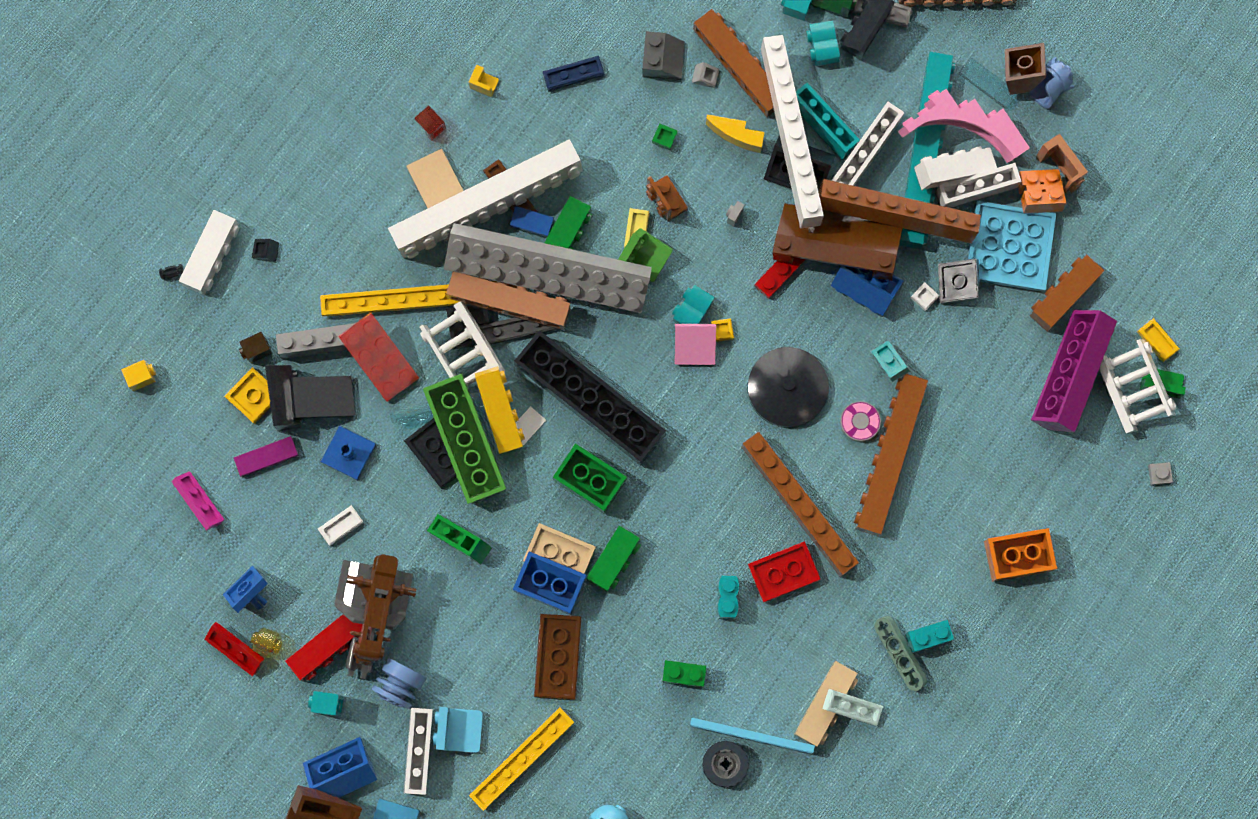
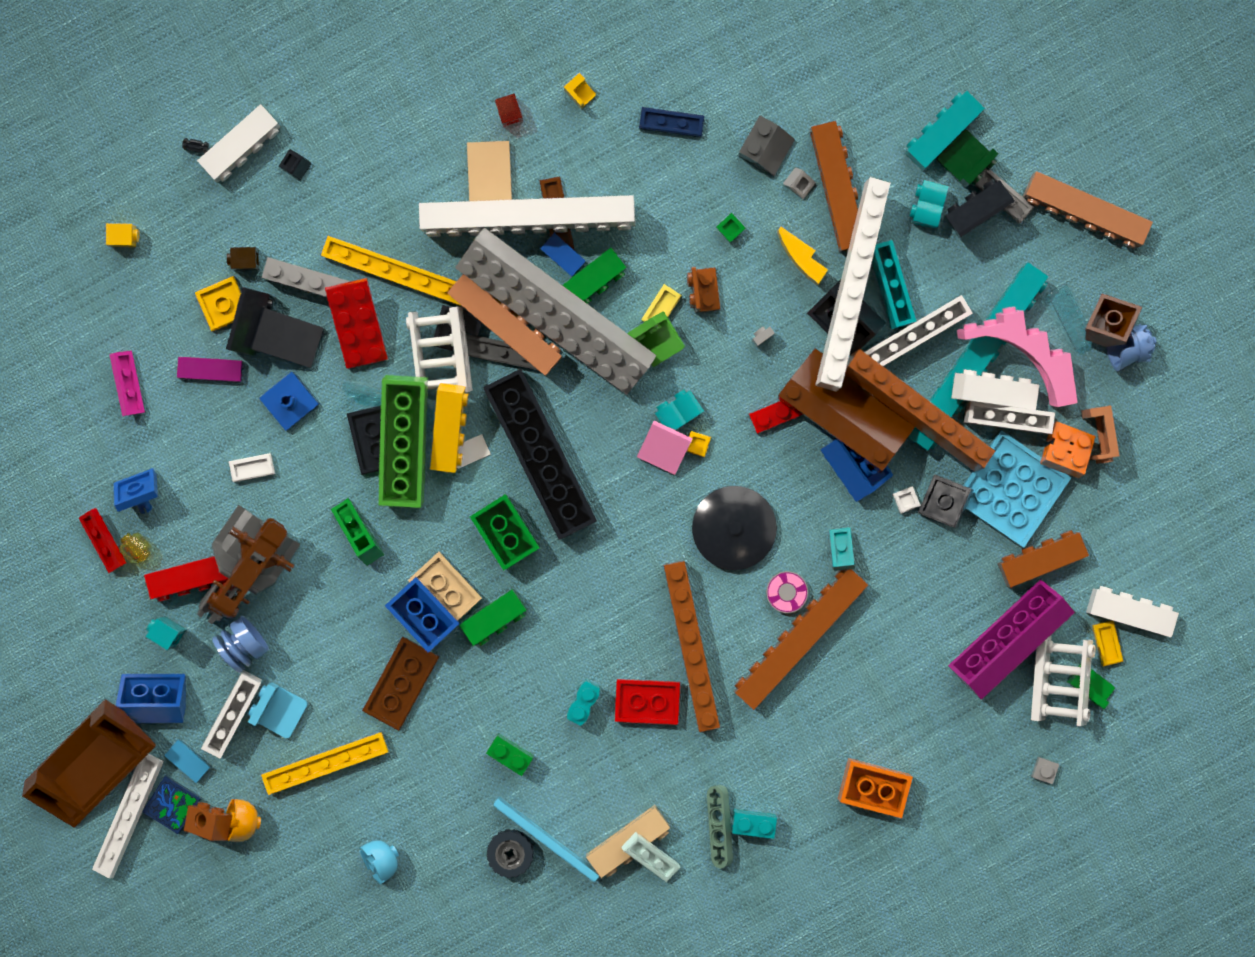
camera: 30 degrees right, 10 degrees up
(1165, 303) = (1132, 612): none -> white brick

